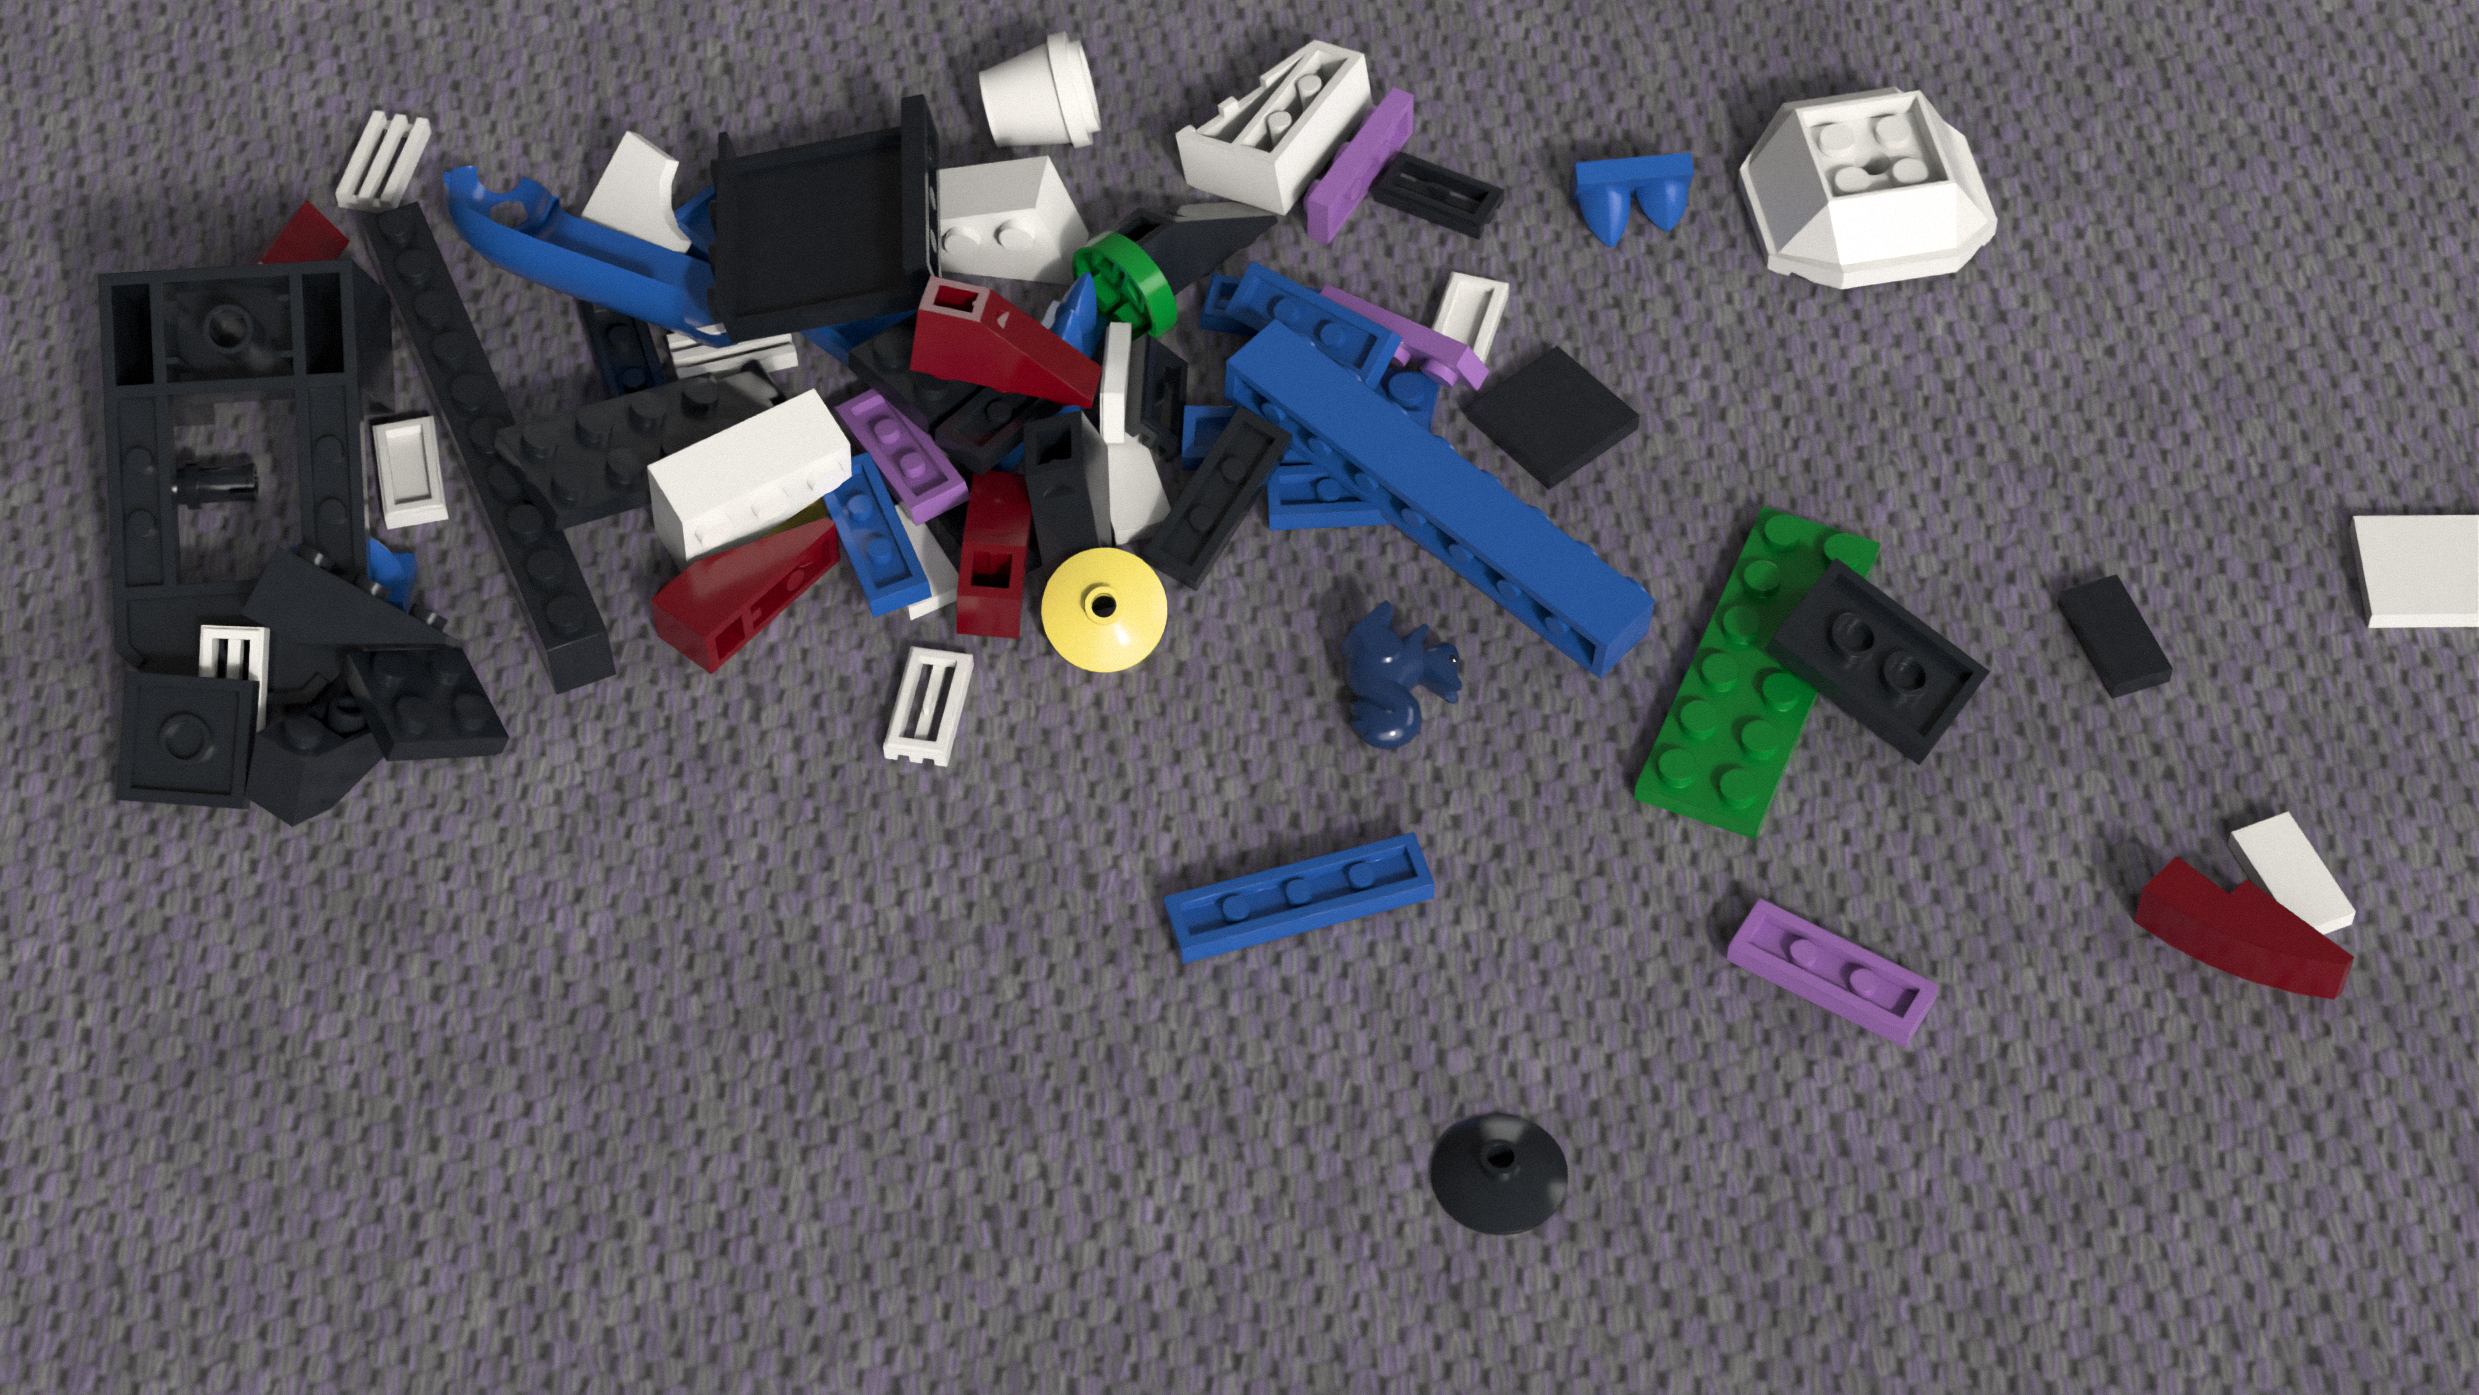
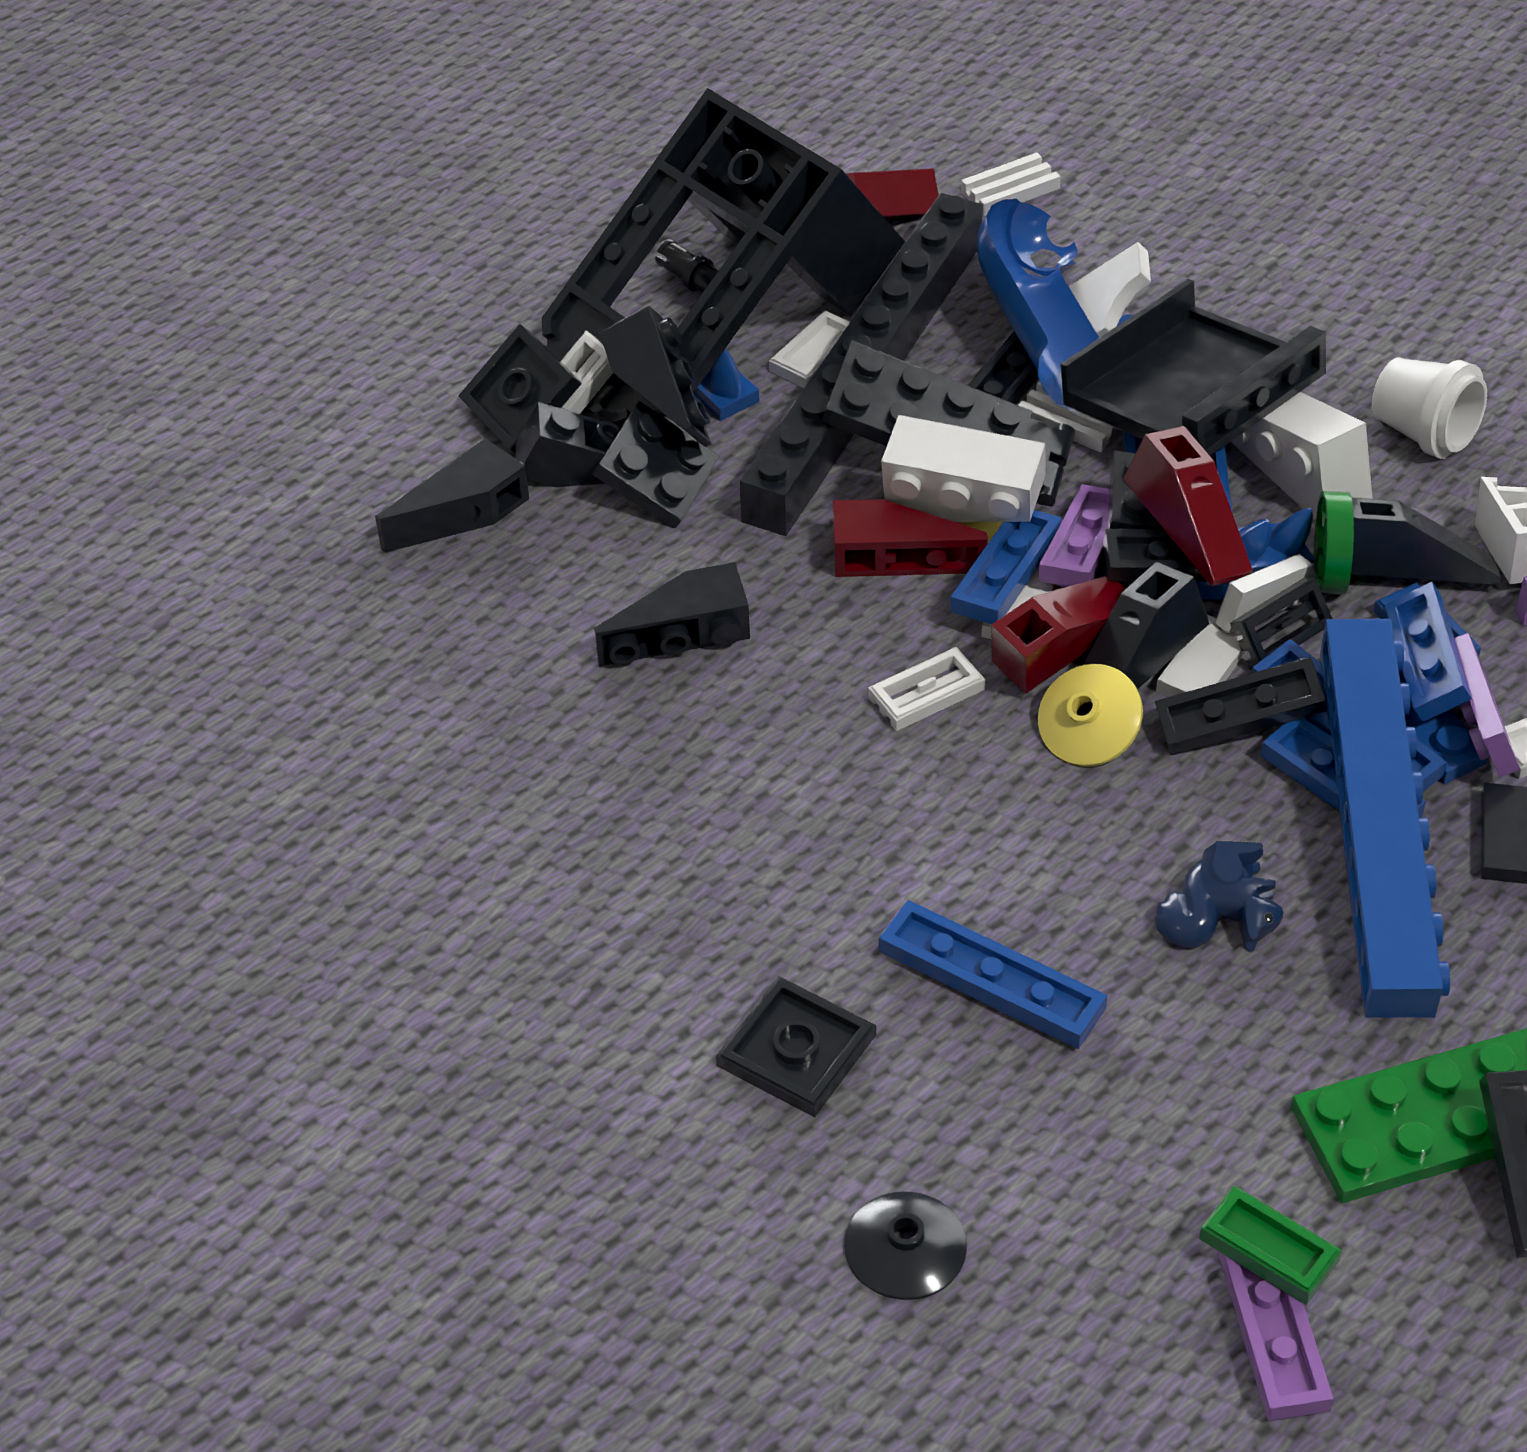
camera: 50 degrees right, 5 degrees down
(270, 889) = (459, 498): none -> black slope
(642, 813) = (684, 614): none -> black slope
(1218, 1101) = (796, 1046): none -> black tile
(1768, 912) = (1270, 1244): none -> green tile

